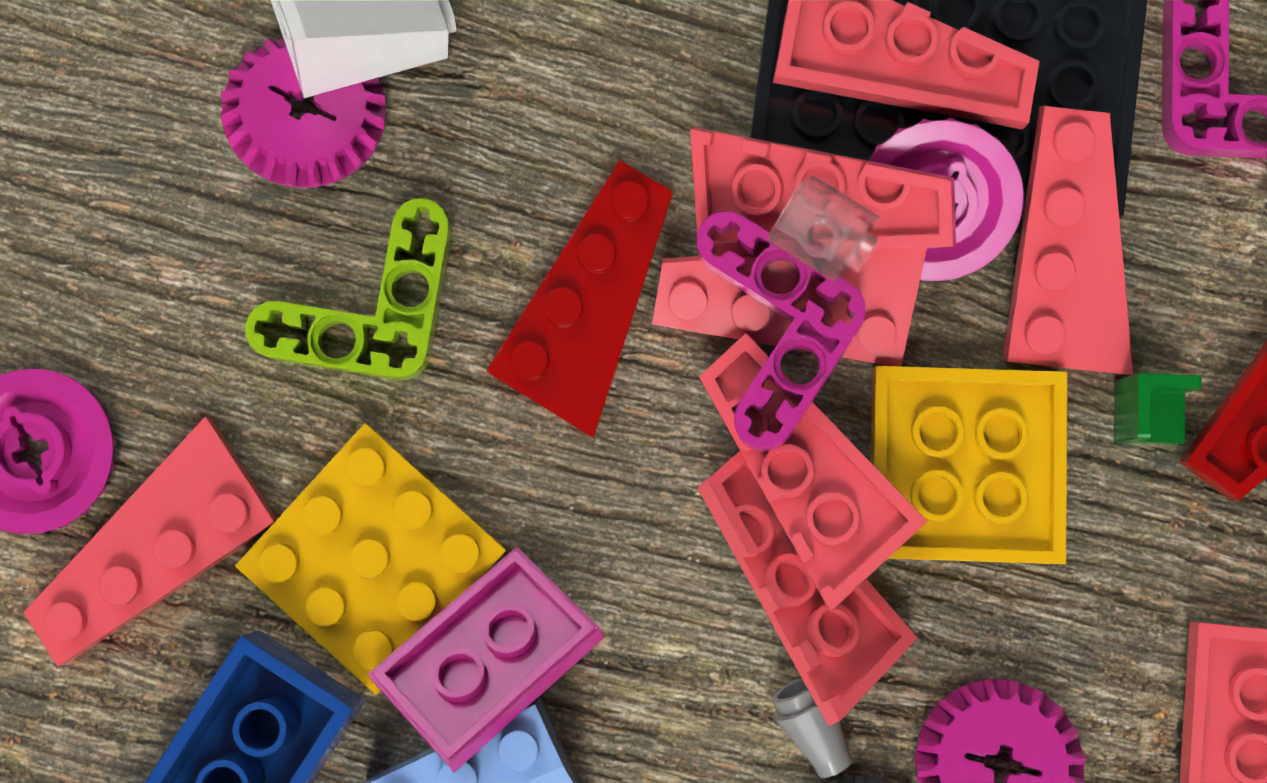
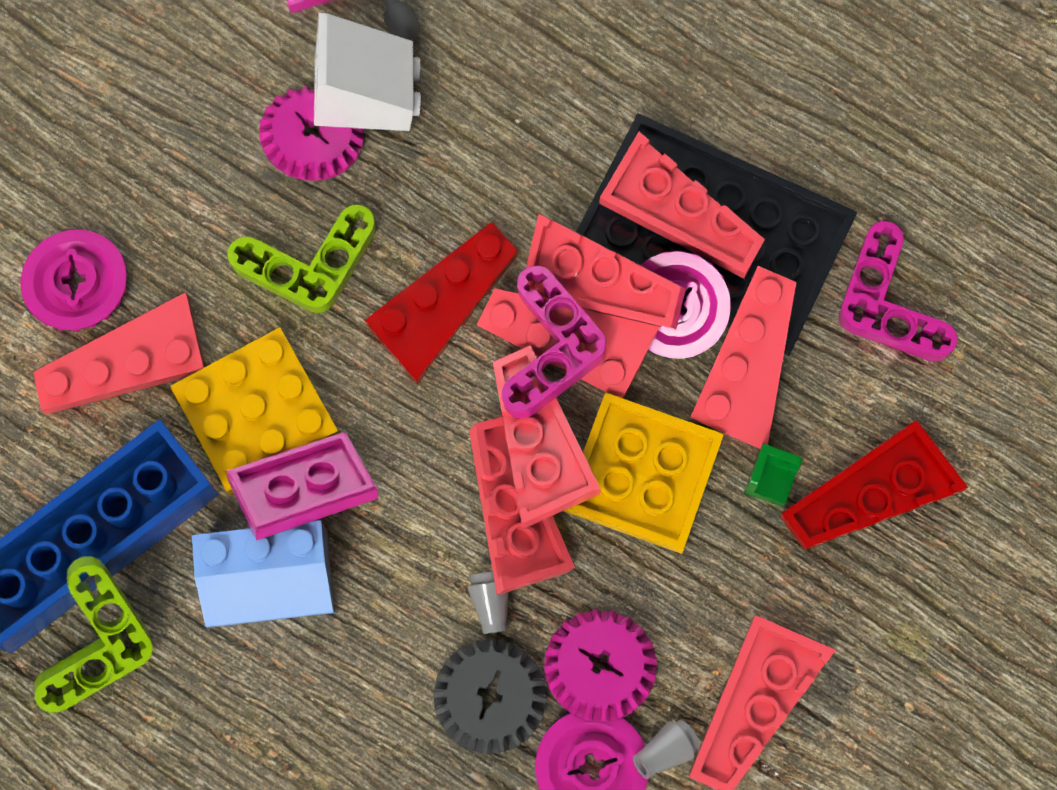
camera: 20 degrees right, 10 degrees down
(825, 229) = (596, 292): clear brick -> none

